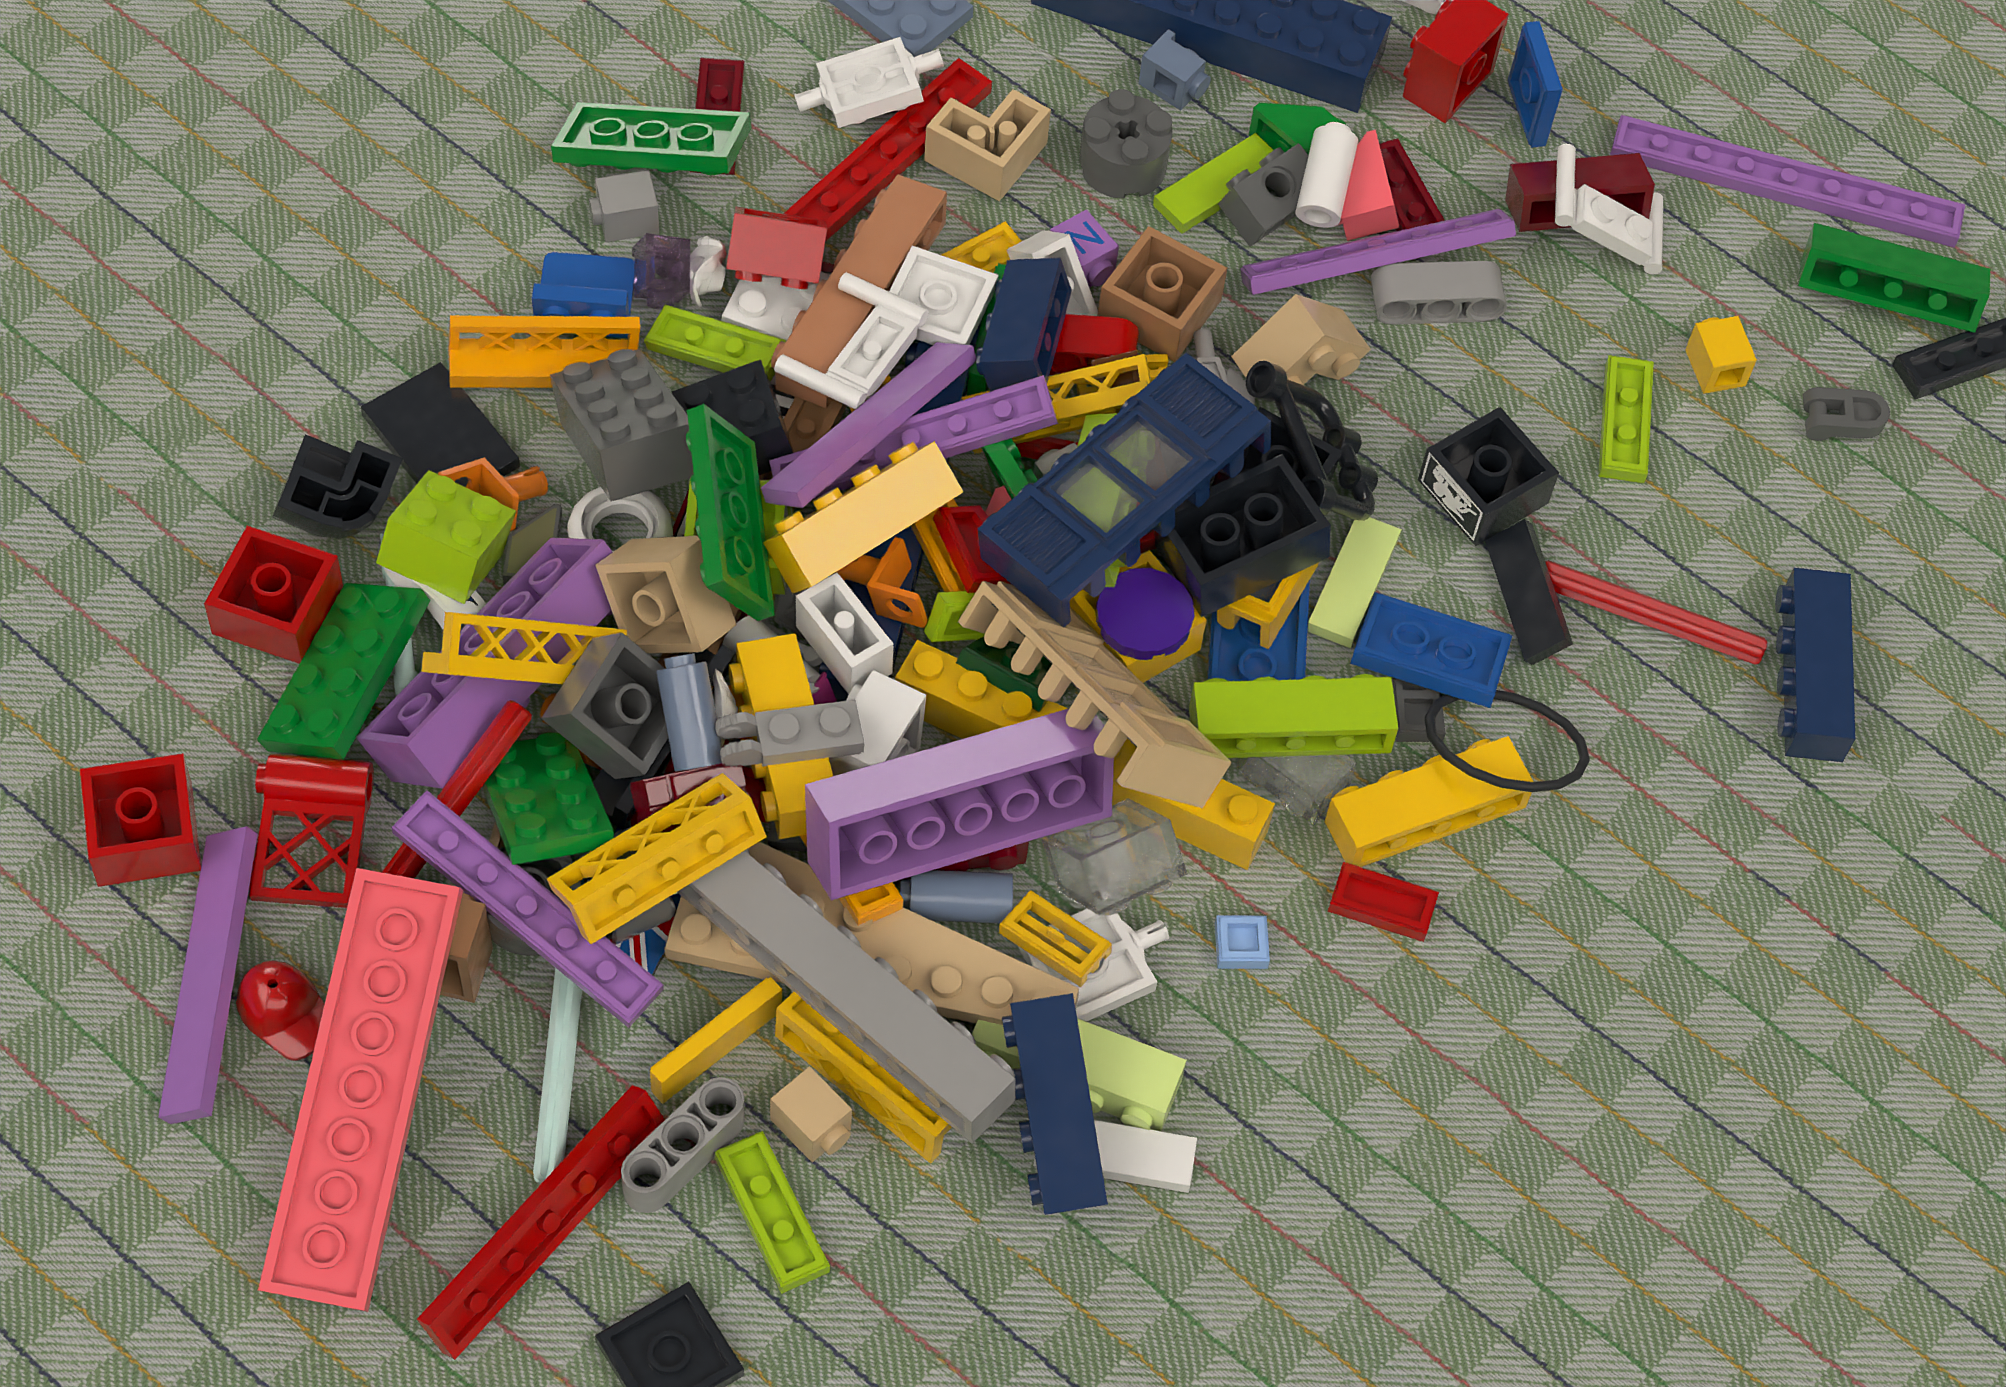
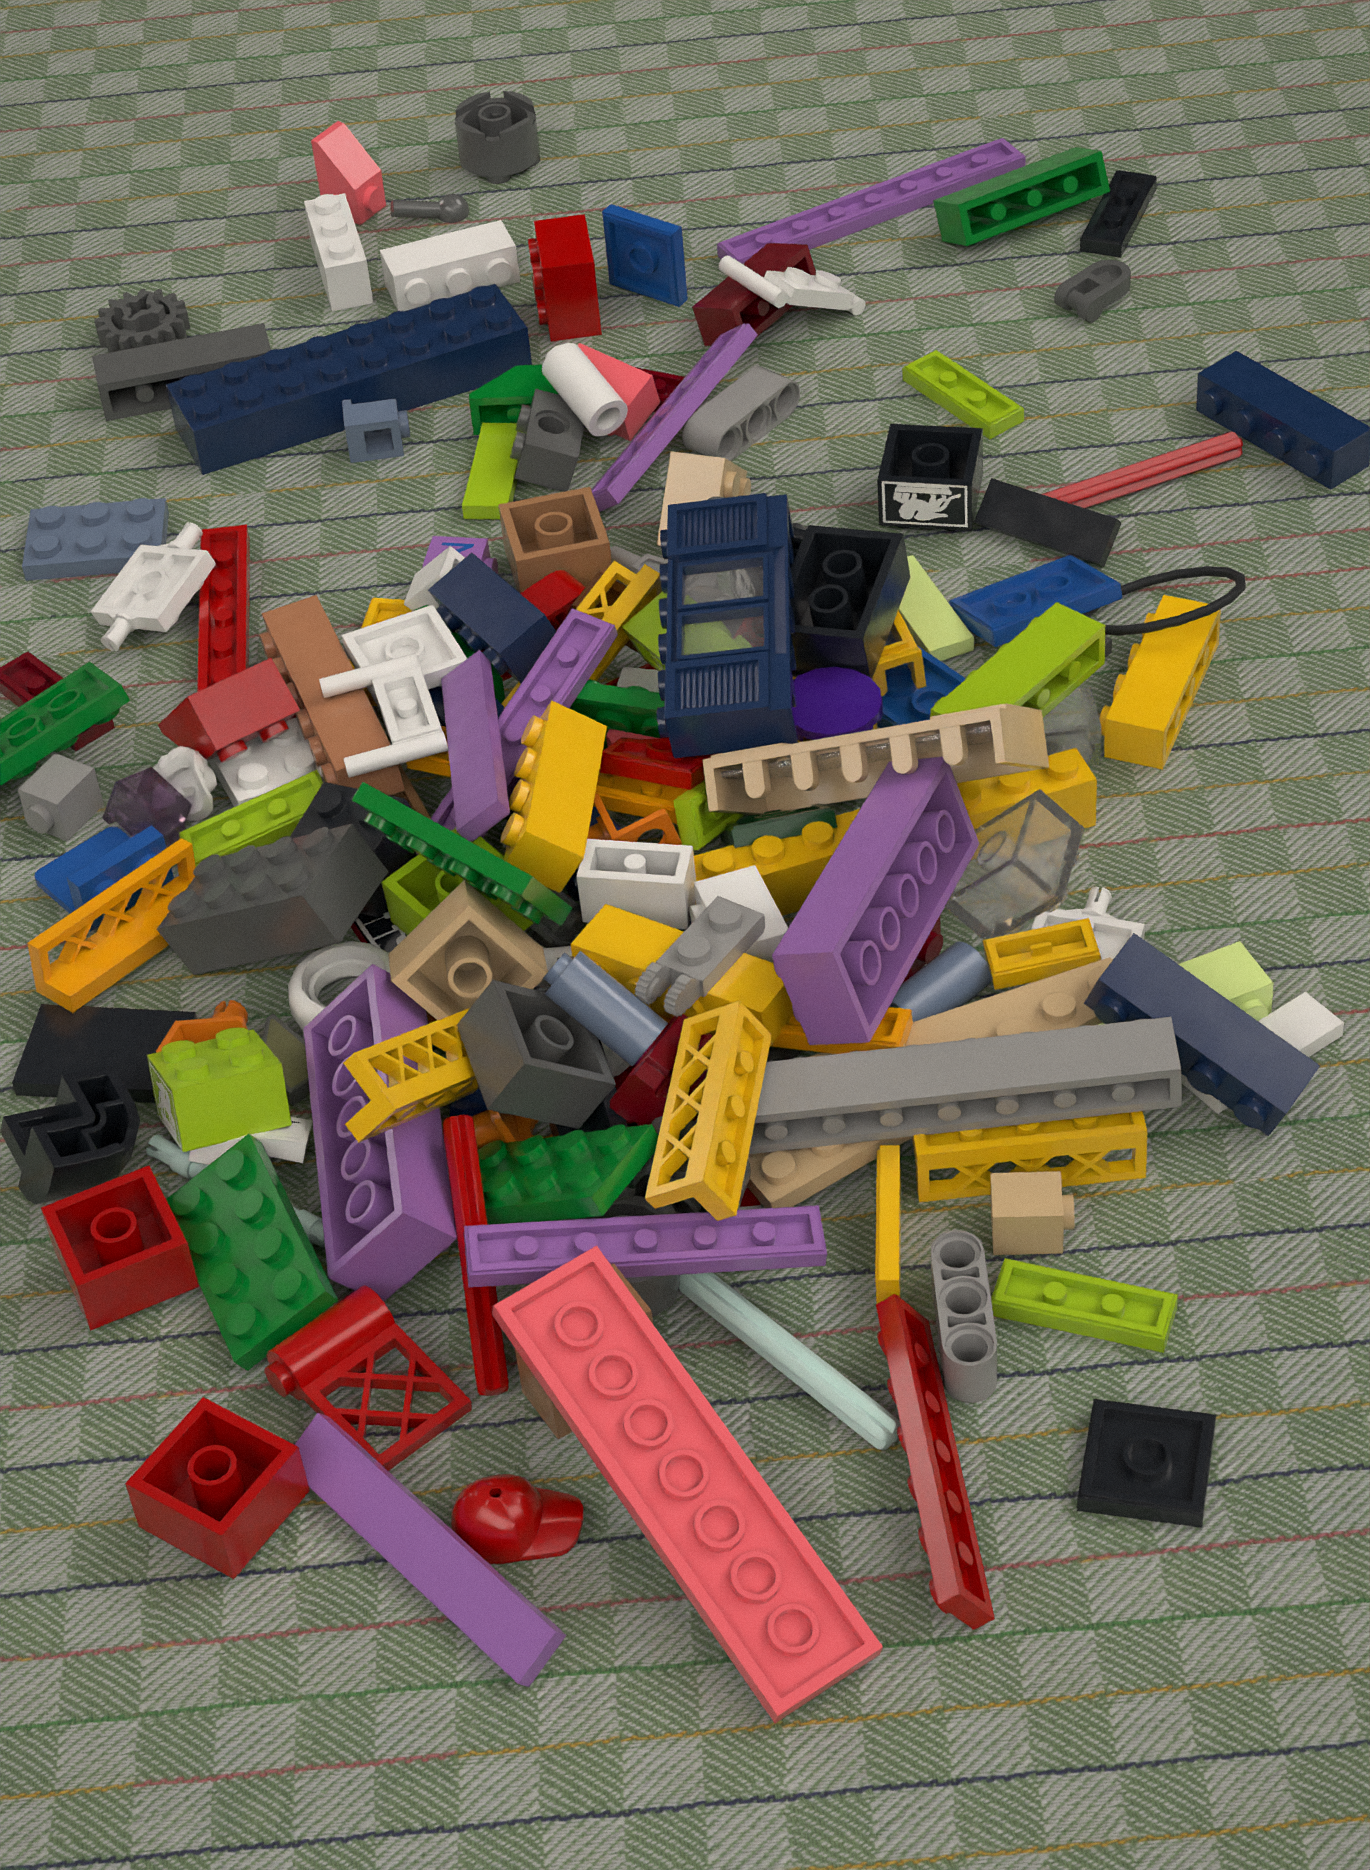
camera: 35 degrees left, 15 degrees down
(988, 150) = (298, 560): tan brick -> none
(1125, 145) = (401, 489): dark grey brick -> none
(1242, 942) = (1157, 863): light blue tile -> none
(1383, 901) = (1212, 764): red tile -> none
(1720, 354) = (974, 312): yellow brick -> none

